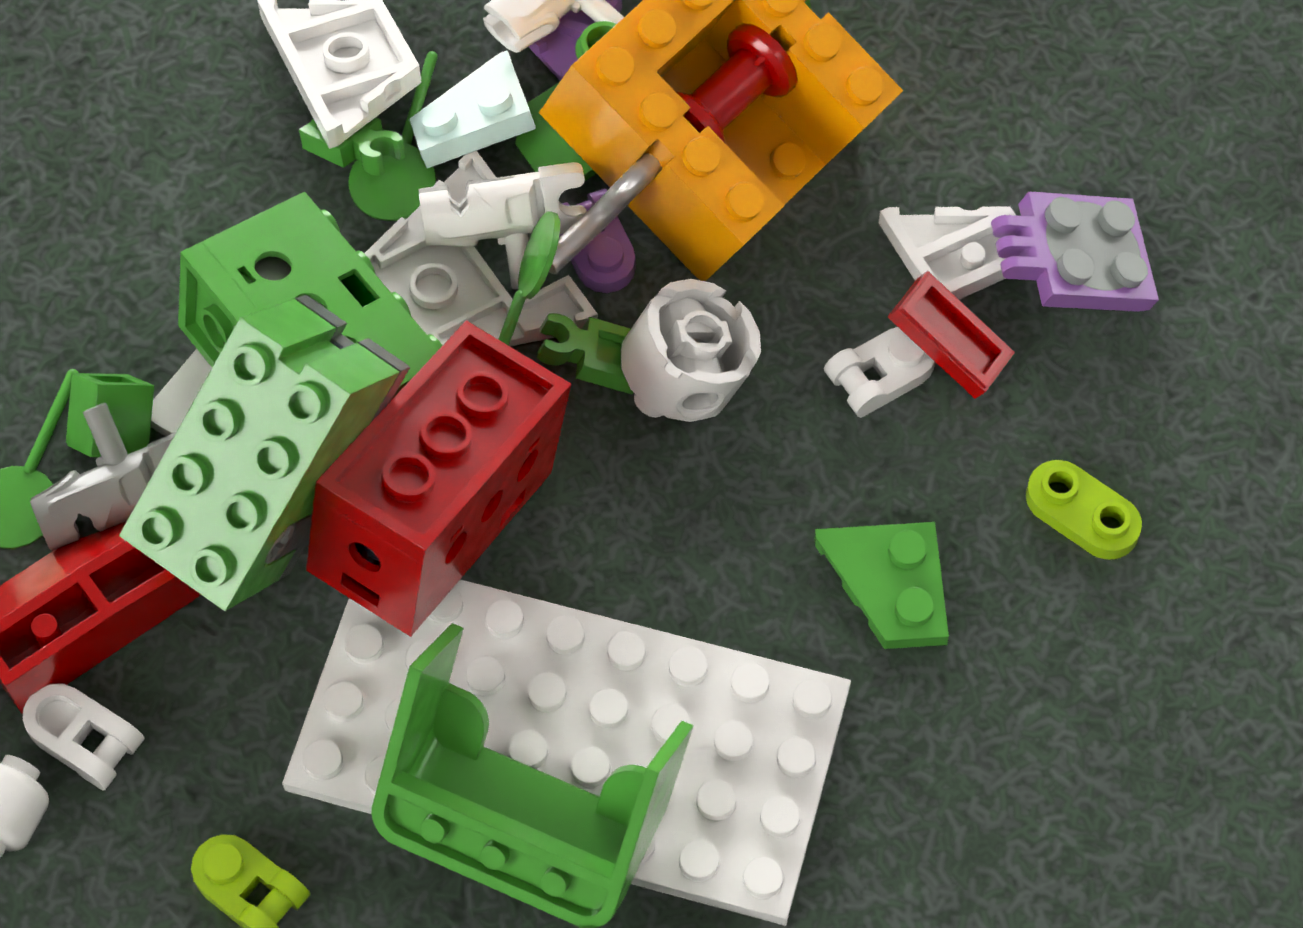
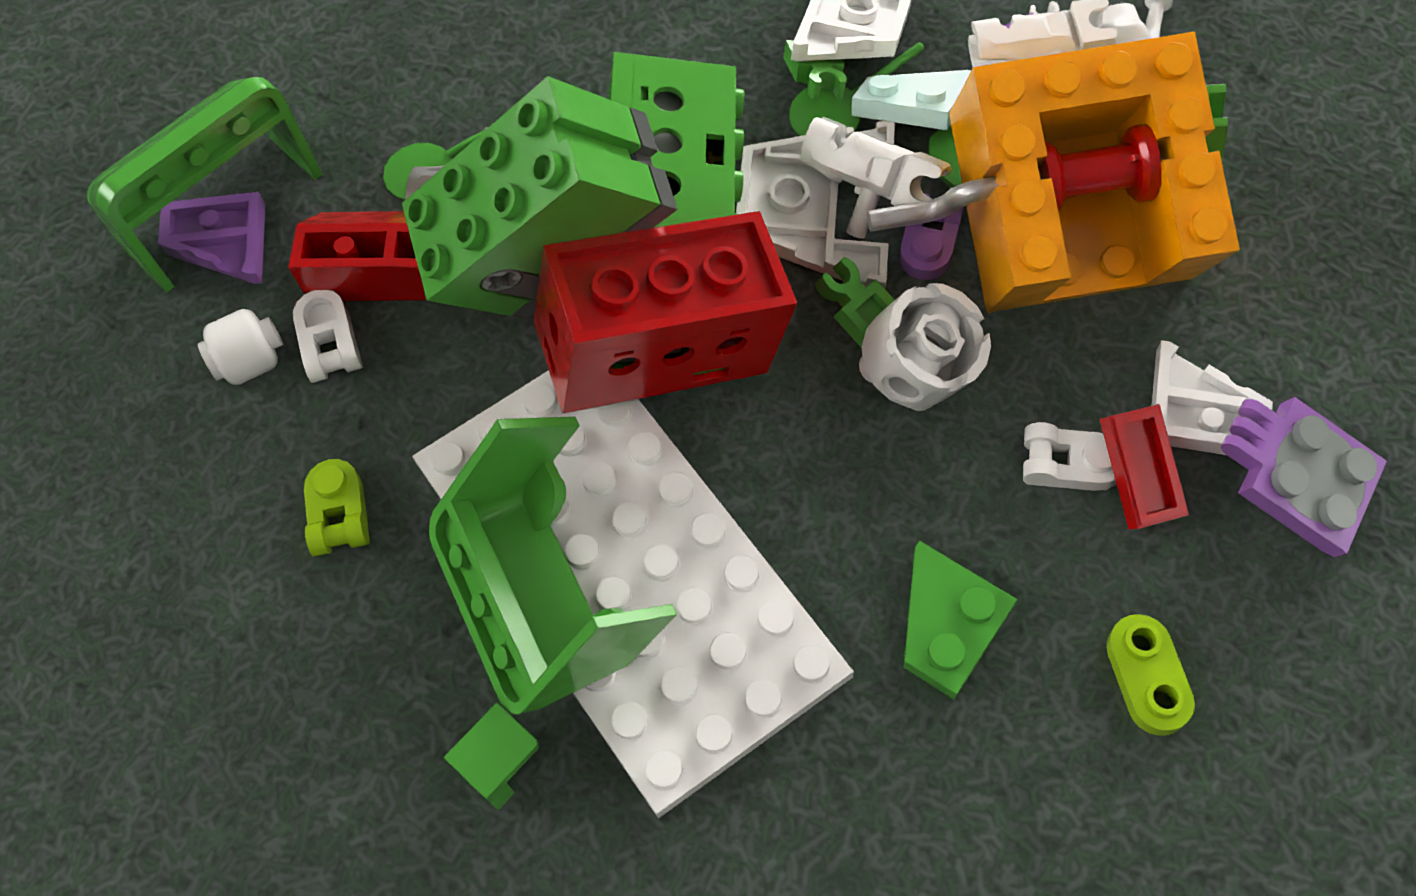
camera: 45 degrees right, 0 degrees up
(533, 269) = (832, 233): bright green piece -> none

